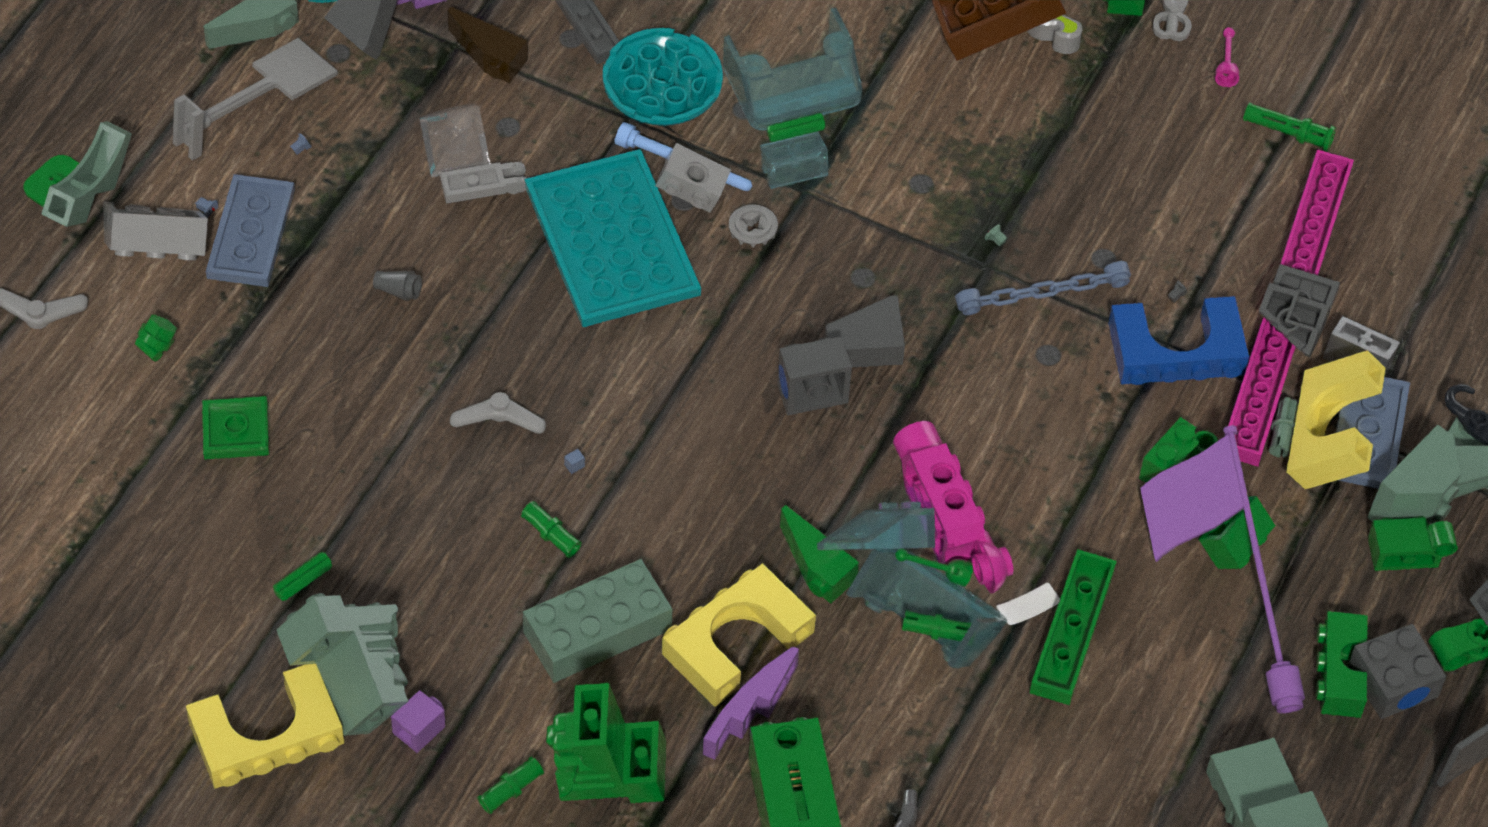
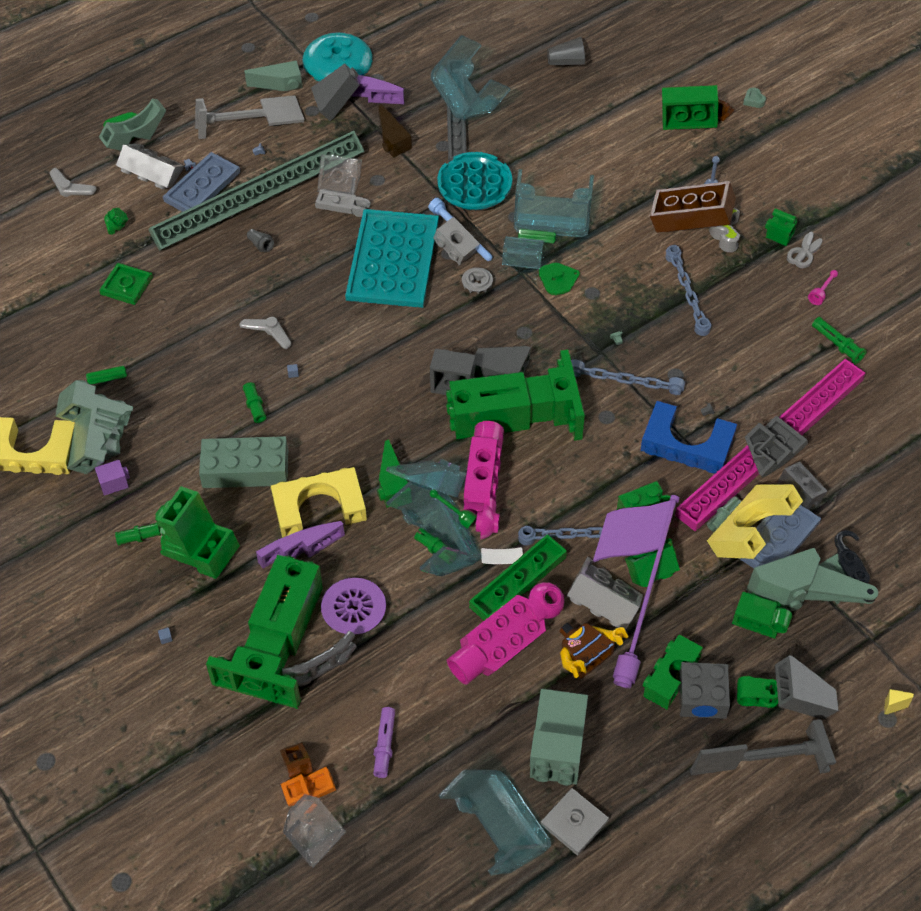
camera: 30 degrees right, 0 degrees up
(340, 214) = (251, 192): none -> sand green piece
(868, 173) = (563, 276): none -> green piece
(888, 727) = (347, 587): none -> medium lavender piece
(930, 378) = (517, 401): none -> green brick
(1000, 86) = (702, 325): none -> sand blue piece
(1049, 569) = (530, 539): none -> sand blue piece
(1108, 705) = (505, 633): none -> dark pink brick
(1200, 601) = (605, 596): none -> light grey wedge
(1220, 677) = (588, 647): none -> torso

